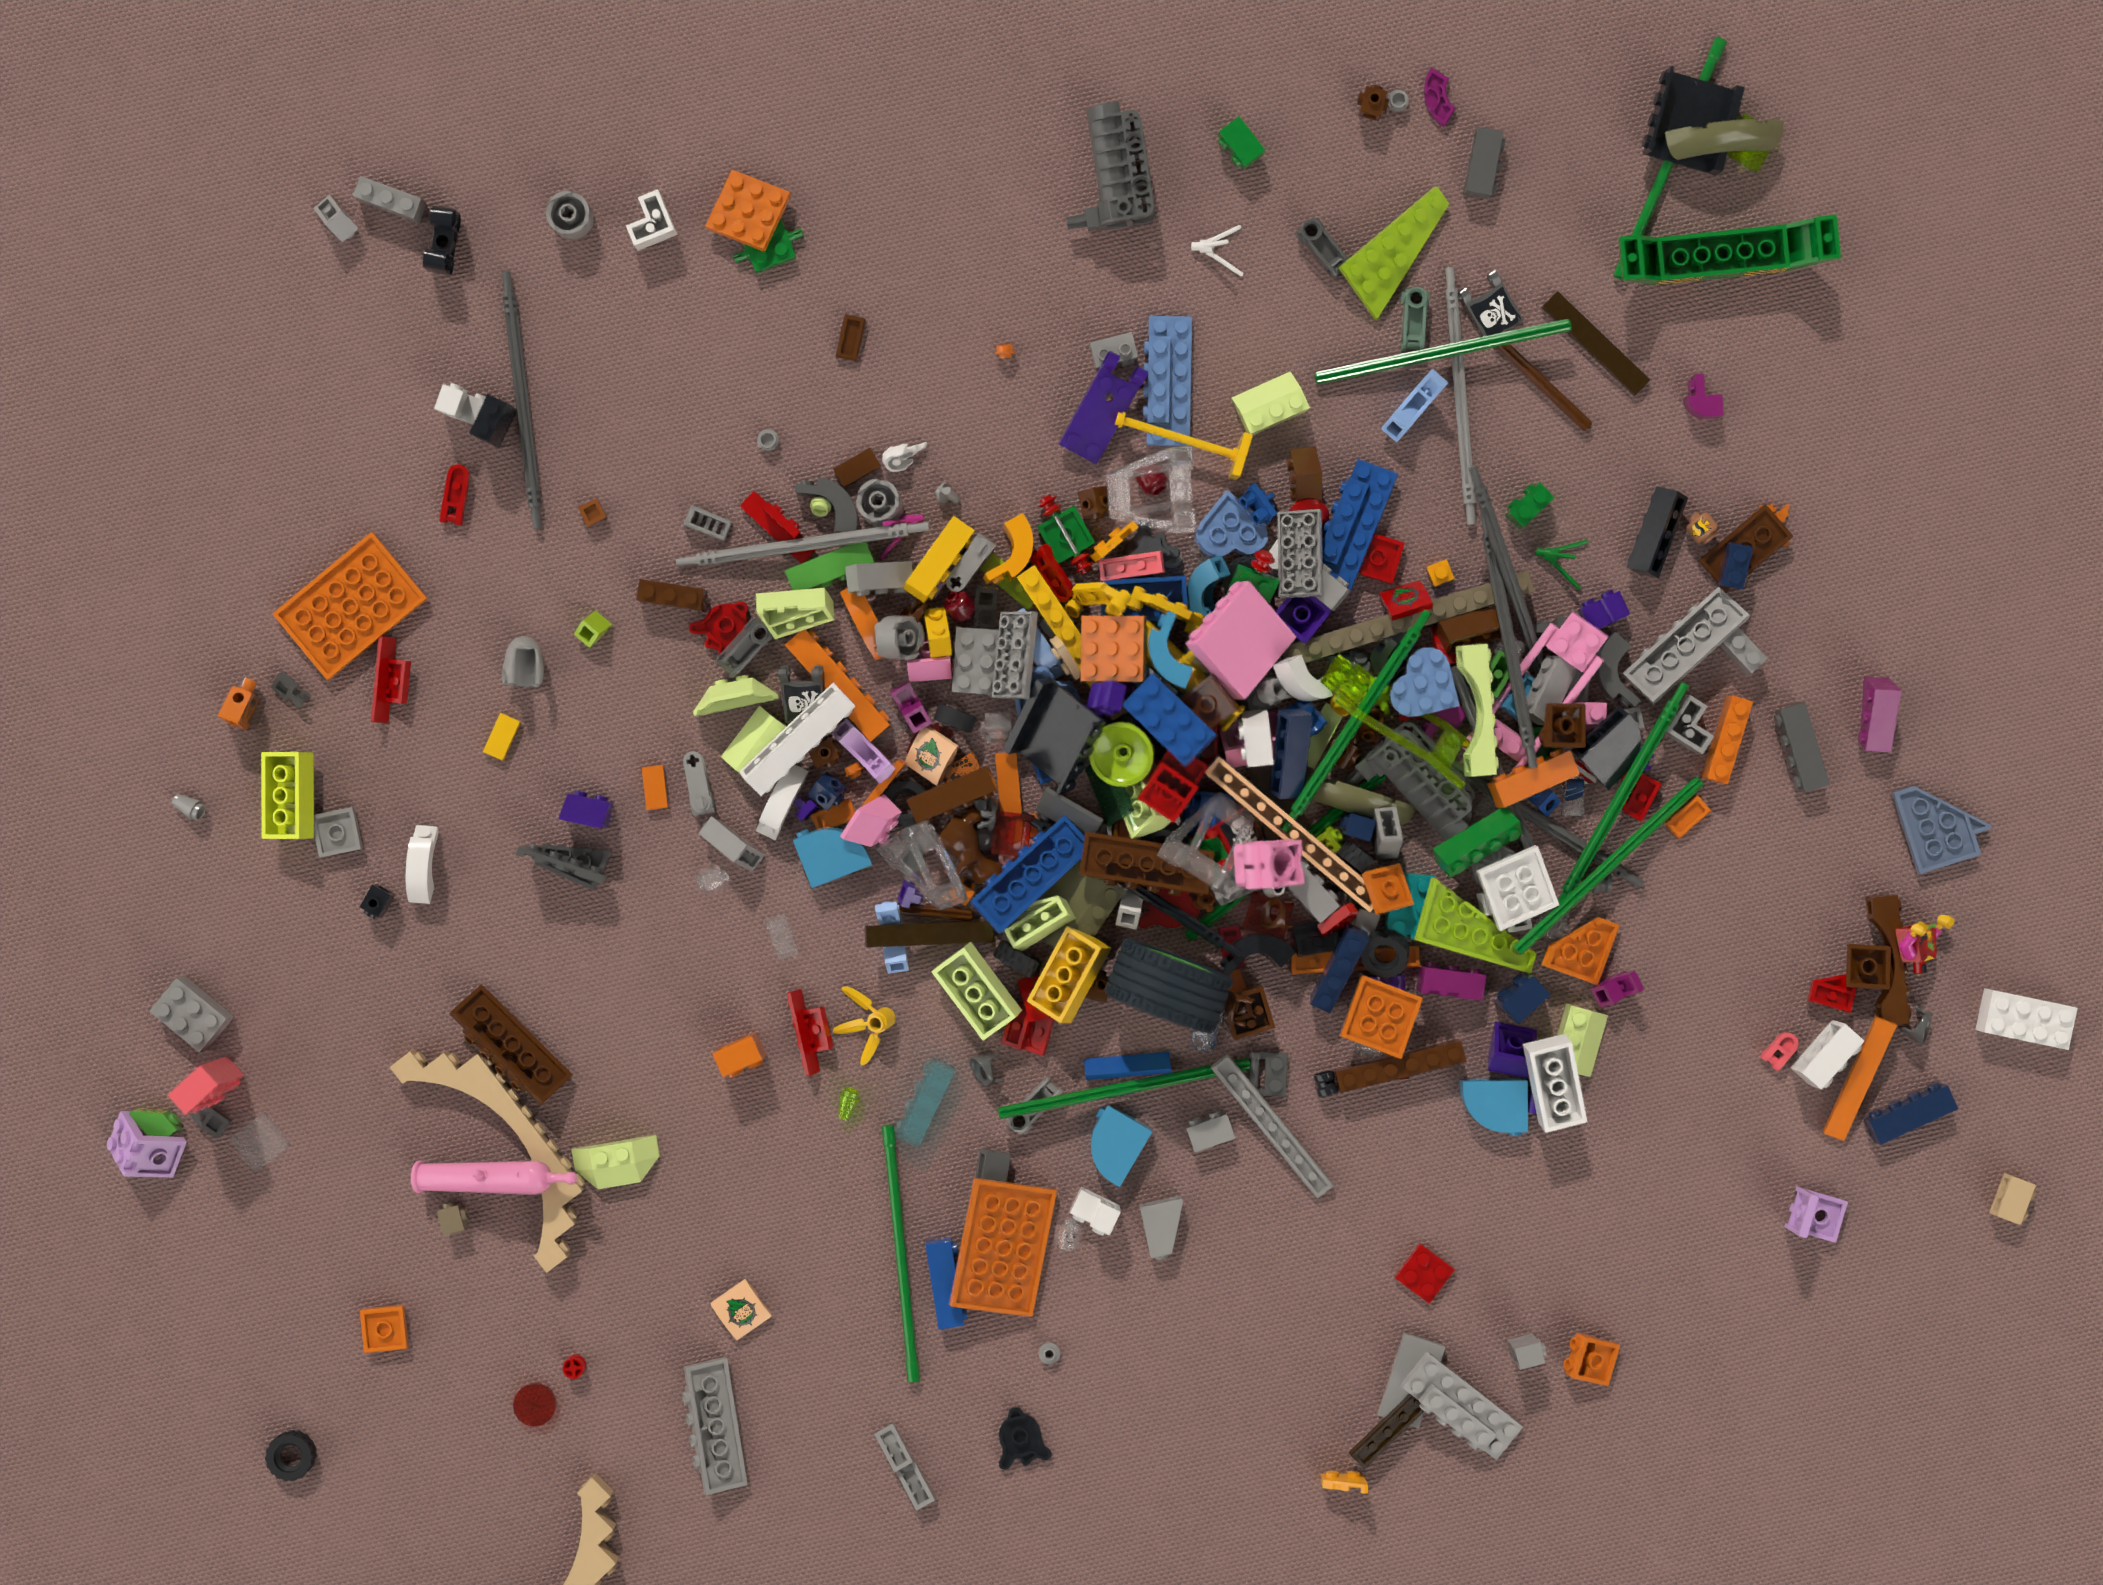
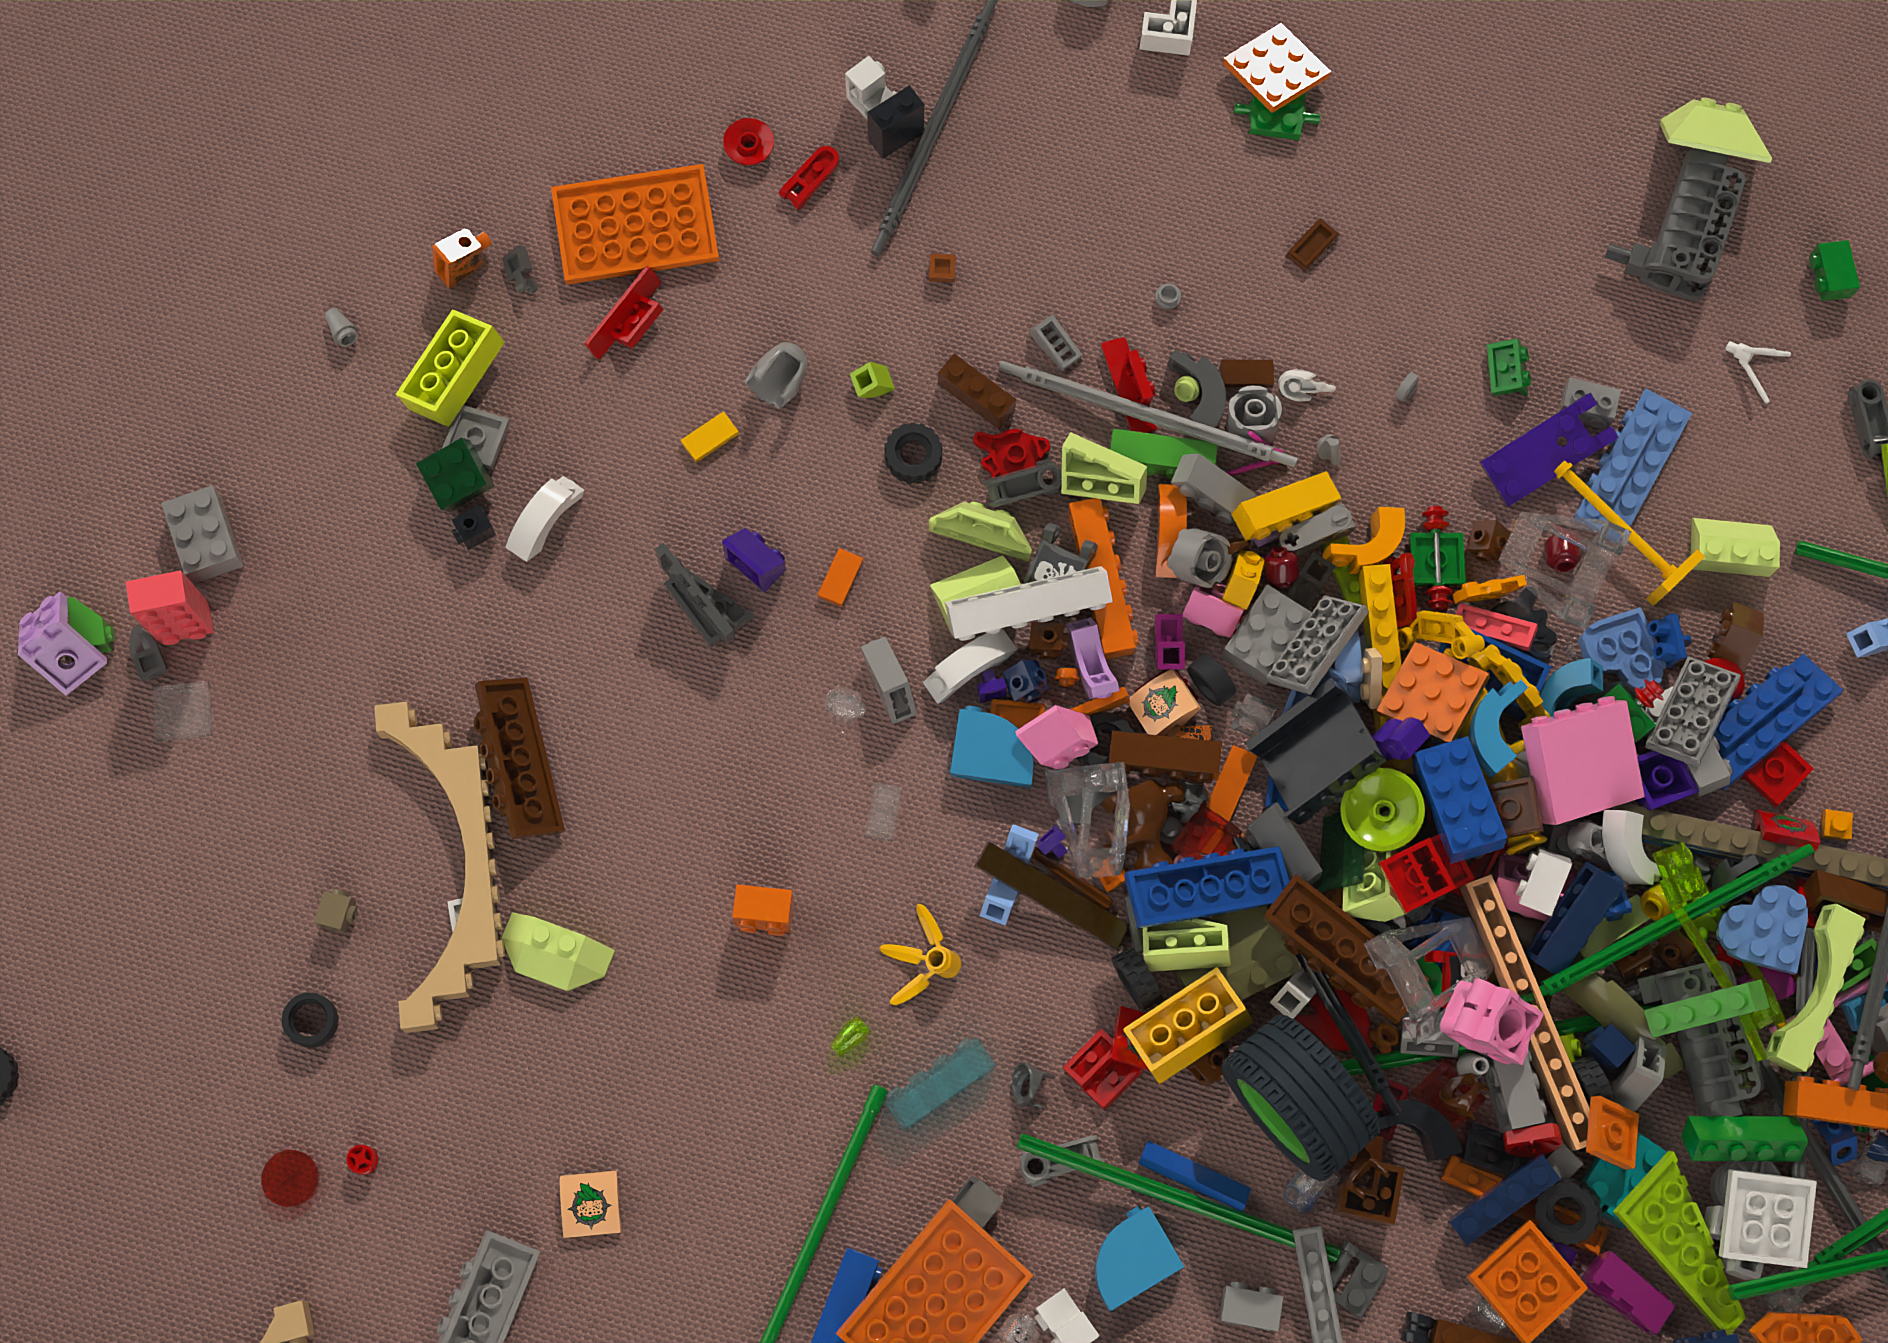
camera: 25 degrees right, 15 degrees down
(340, 871) = (455, 474): none -> dark green brick
(383, 492) = (744, 132): none -> red dish
(384, 1328) = (180, 992): orange plate -> none
(465, 1297) = (304, 999): none -> black tyre
(486, 1177) = (403, 882): bright pink piece -> none
(641, 655) = (916, 433): none -> black tyre
(698, 785) = (889, 597): light grey piece -> none
(811, 1031) = (857, 930): red bracket -> none
(976, 991) = (1070, 989): yellowish green brick -> none
(977, 415) = (1407, 387): none -> light grey tile
(1005, 350) = (1471, 341): orange plate -> none
(1042, 356) = (1508, 367): none -> green bracket
(1100, 81) = (1715, 129): none -> yellowish green slope
(1408, 773) = (1707, 1008): none -> bright green brick
(1605, 885) = (1866, 1280): dark grey wheel -> none

